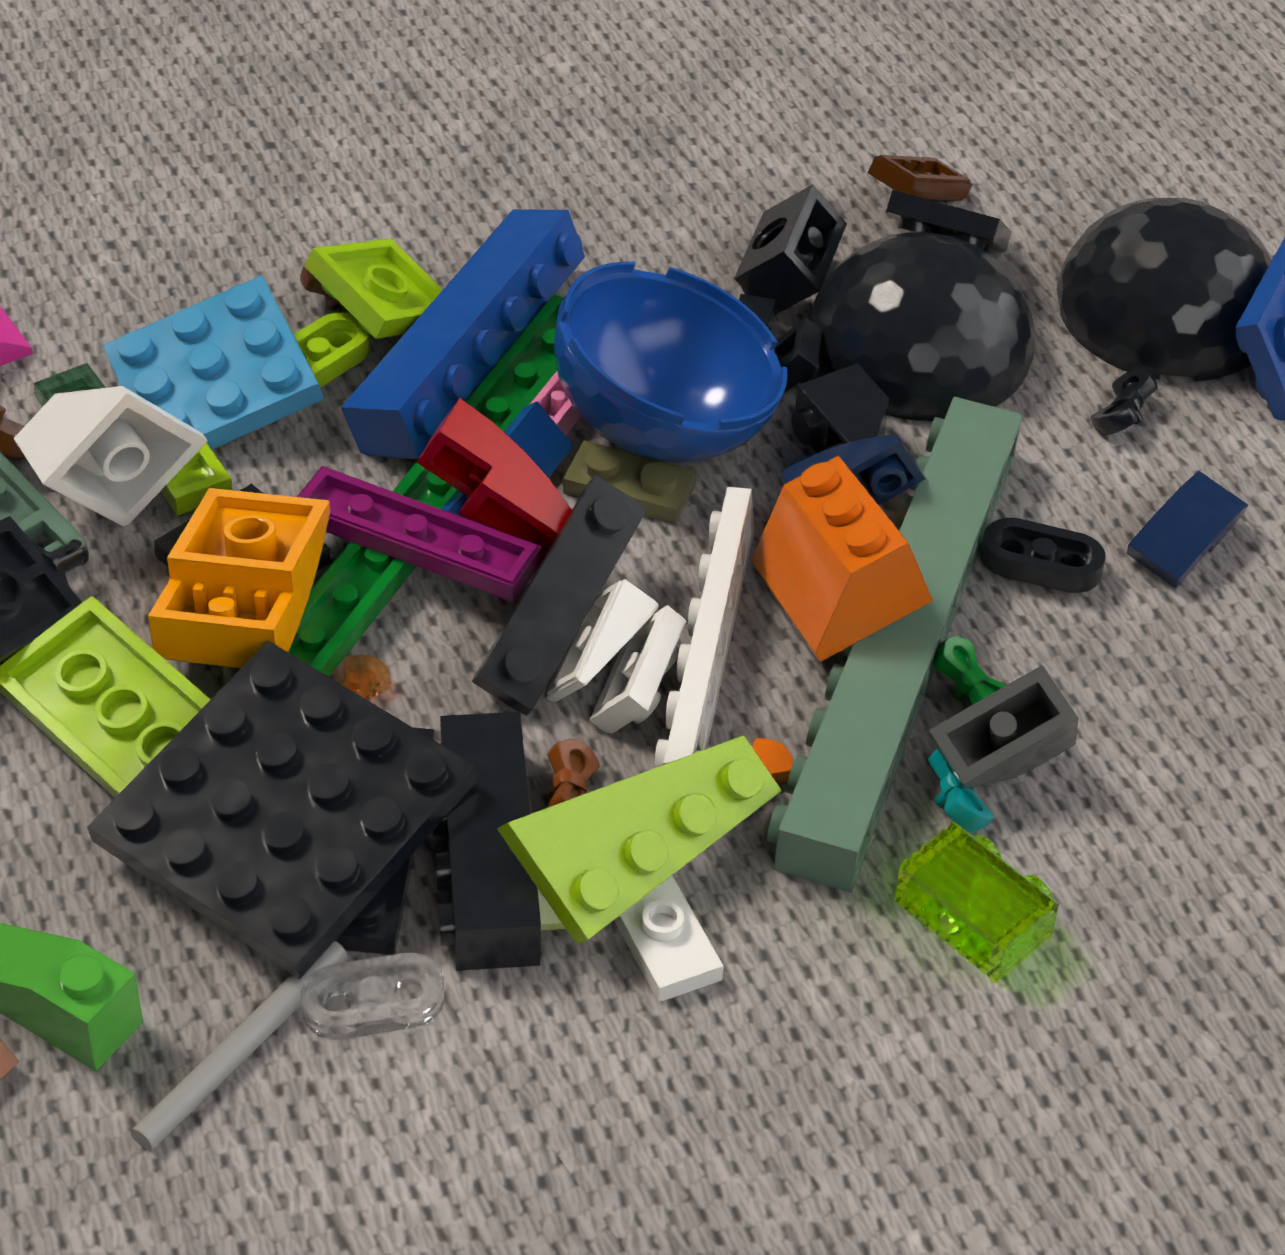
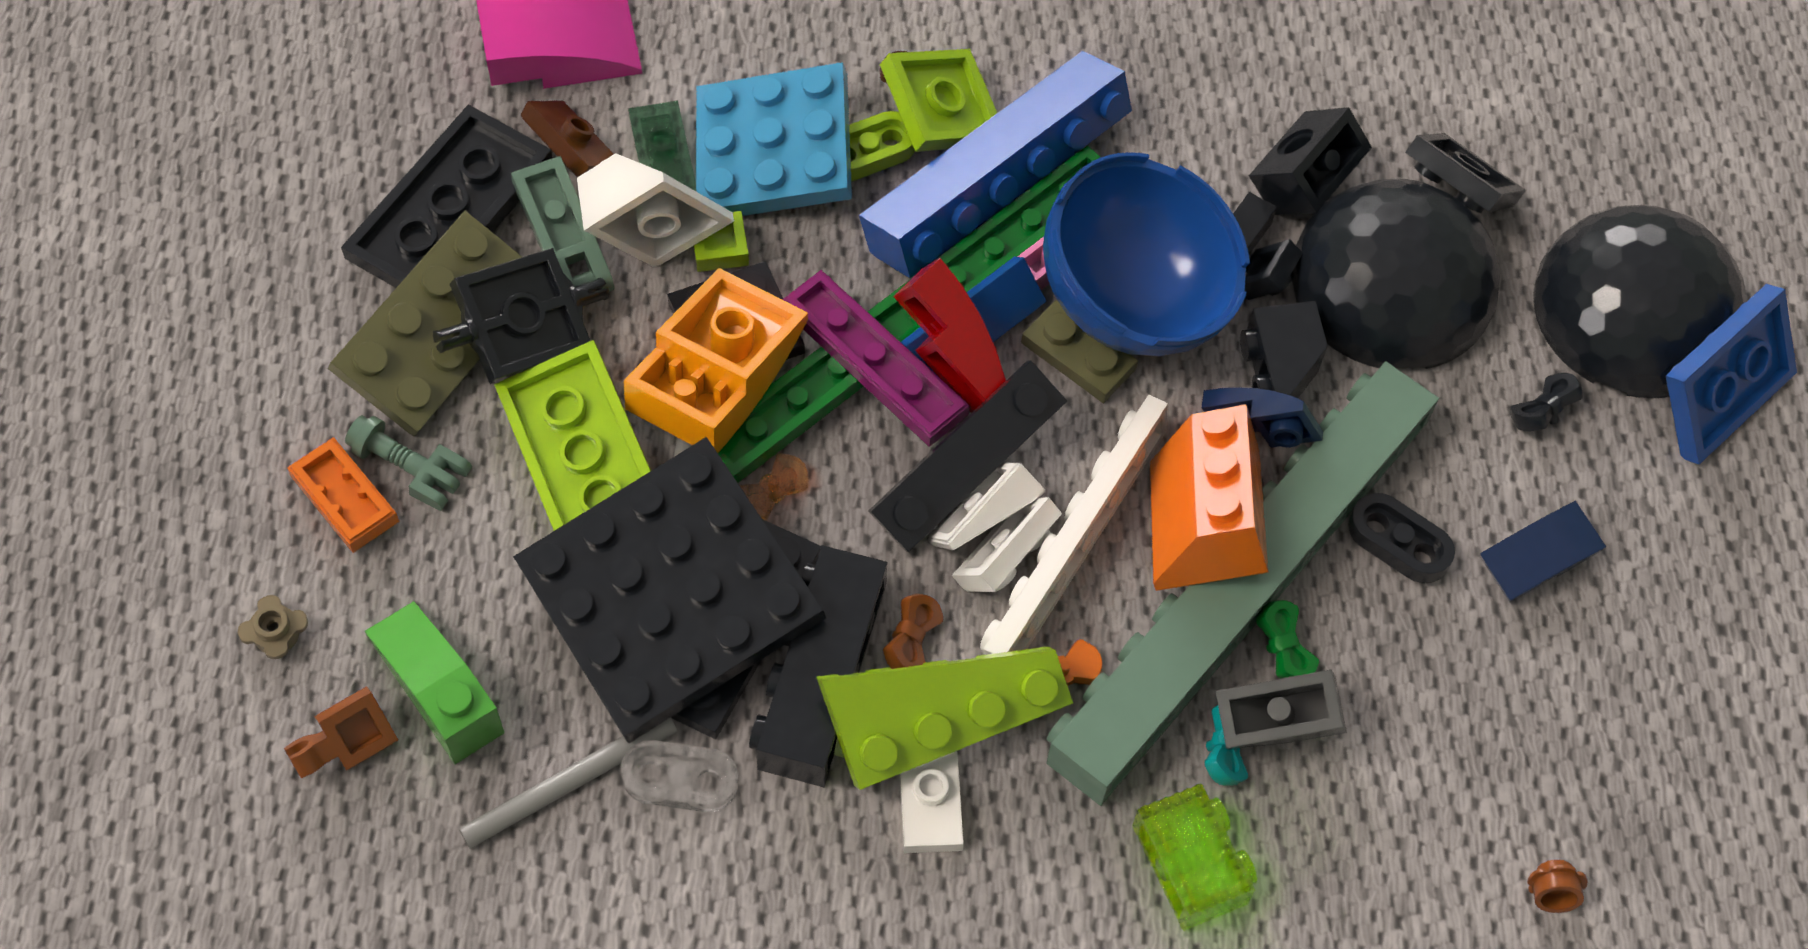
camera: 20 degrees right, 15 degrees up
(920, 177) = (1463, 113): reddish brown plate -> none

